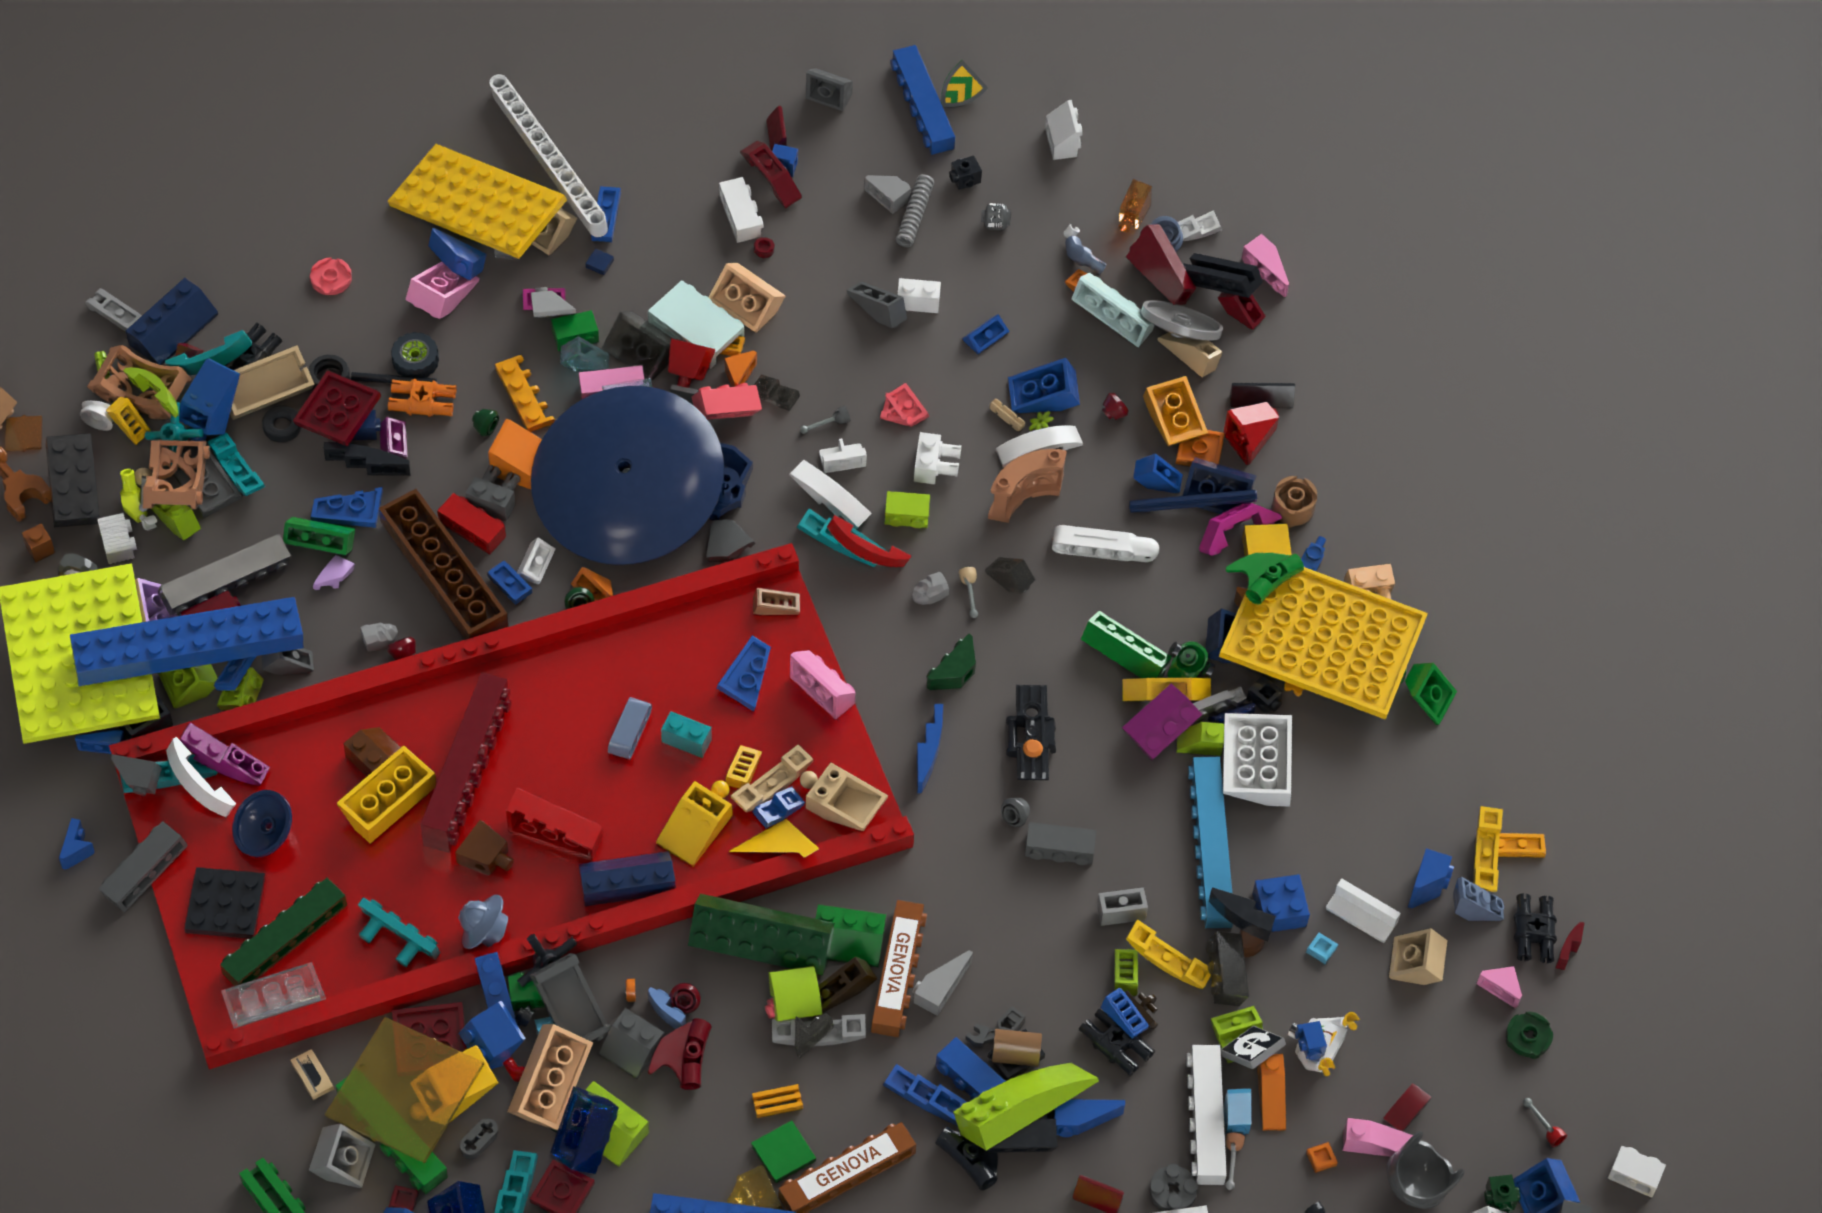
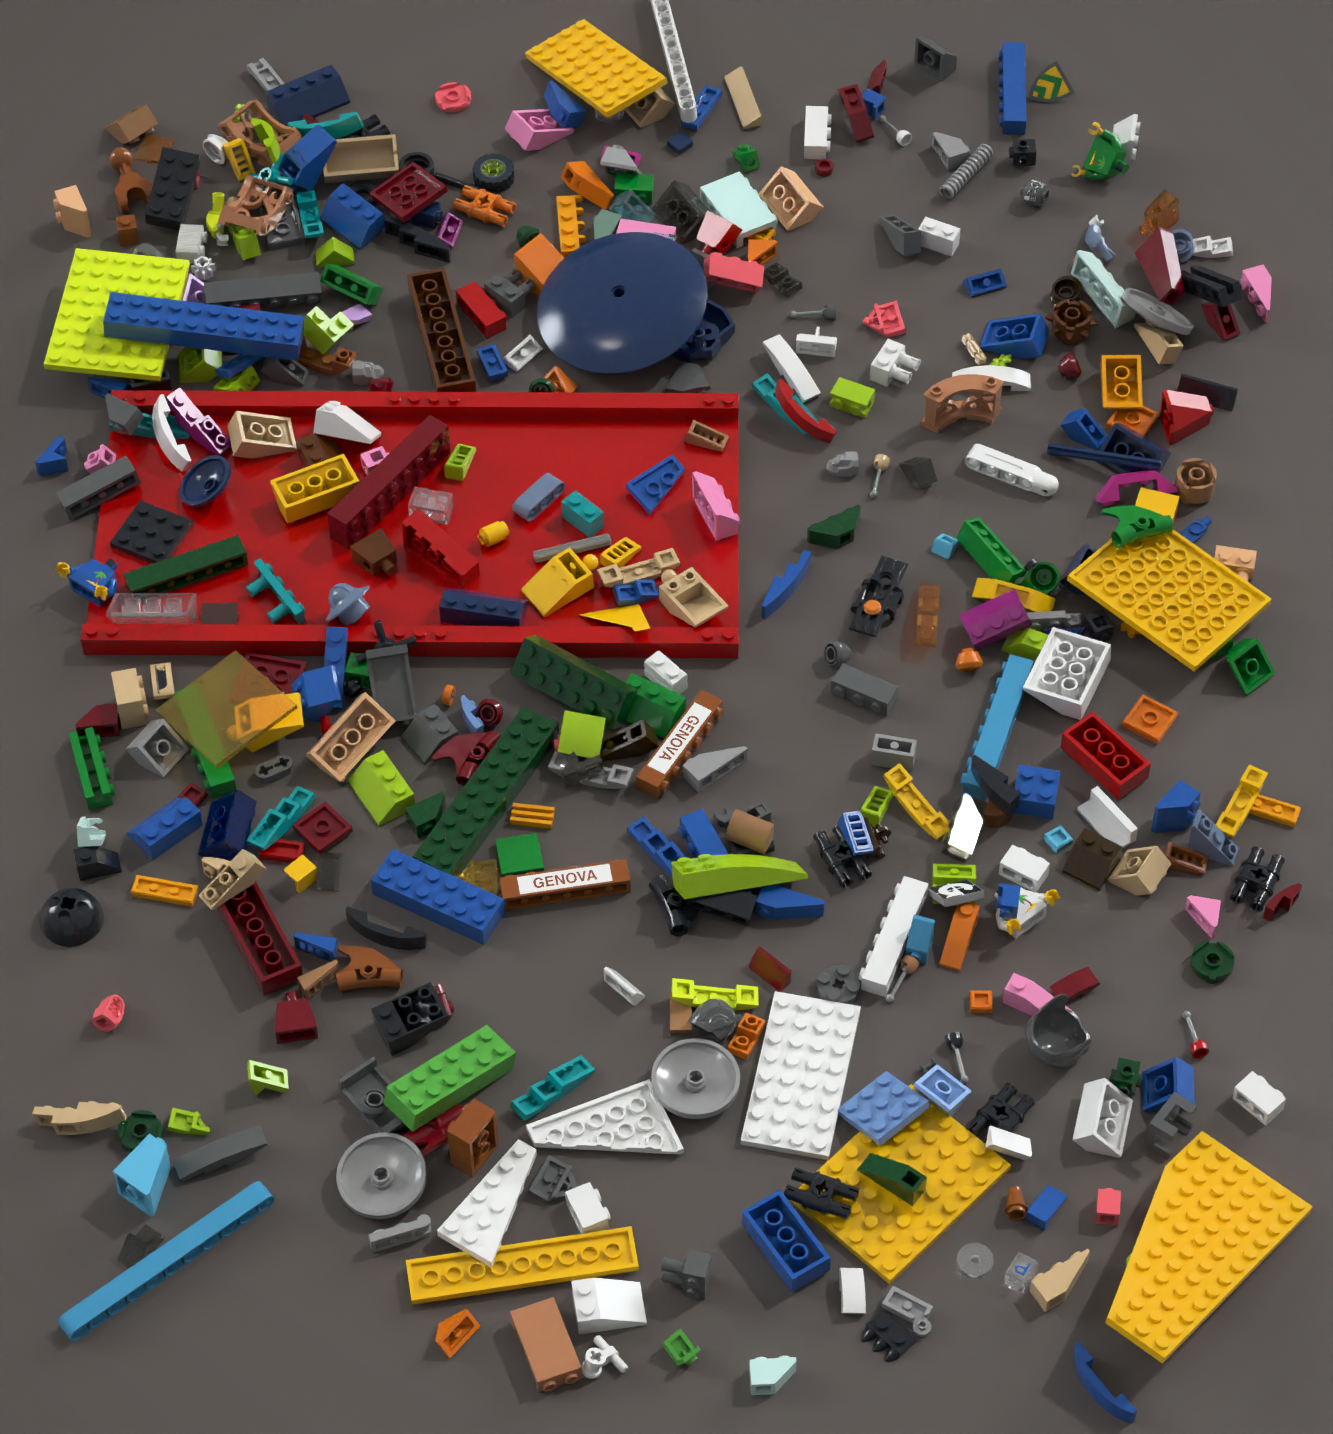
camera: 25 degrees right, 5 degrees down
(130, 833) = (99, 459): none -> bright pink brick
(144, 563) = (203, 268): none -> white gear
(186, 980) = (92, 579): none -> blue torso
(266, 1143) = (103, 720): none -> dark red slope
(281, 503) = (334, 253): none -> lime slope
(285, 454) = (352, 216): none -> blue slope
(289, 1109) = (130, 698): none -> tan brick
(297, 748) = (260, 435): none -> tan slope
(318, 602) = (325, 332): none -> lime brick
(332, 636) = (325, 363): none -> dark orange slope
(342, 976) = (219, 613): none -> clear smoke piece
(353, 510) = (386, 273): blue wing -> none
(386, 708) = (343, 423): none -> white slope
(438, 734) = (372, 458): none -> bright pink brick
(519, 772) = (435, 504): none -> clear brick
(523, 340) = (585, 182): none -> orange slope
(530, 723) = (458, 464): none -> lime slope
(564, 387) = (605, 223): none -> sand green slope
(584, 1130) = (359, 785): clear blue slope -> none
(600, 786) = (493, 533): none -> yellow brick
(645, 190) = (743, 98): none -> tan slope
(666, 1140) = (425, 814): none -> dark green slope
(679, 258) = (747, 156): none -> green bracket
(689, 776) = (576, 546): none -> light grey axle
(723, 1092) = (489, 792): none -> dark green brick
(832, 188) = (903, 136): none -> white hinge
(849, 892) = (665, 673): none -> white brick
(1053, 156) = (1104, 157): none -> green torso
(1071, 650) = (944, 546): none -> medium azure slope
(1074, 322) = (1066, 288): none -> dark brown piece
(1089, 737) = (927, 615): none -> clear orange slope
(1095, 354) = (1071, 321): none -> reddish brown brick
(1152, 776) = (968, 660): none -> orange cone
(1304, 993) = (1024, 868): none -> white brick
(1333, 840) = (1105, 755): none -> red brick
(1356, 783) = (1150, 719): none -> orange tile
(1367, 961) = (1092, 859): none -> dark brown slope
(1441, 926) = (1182, 865): none -> dark orange slope

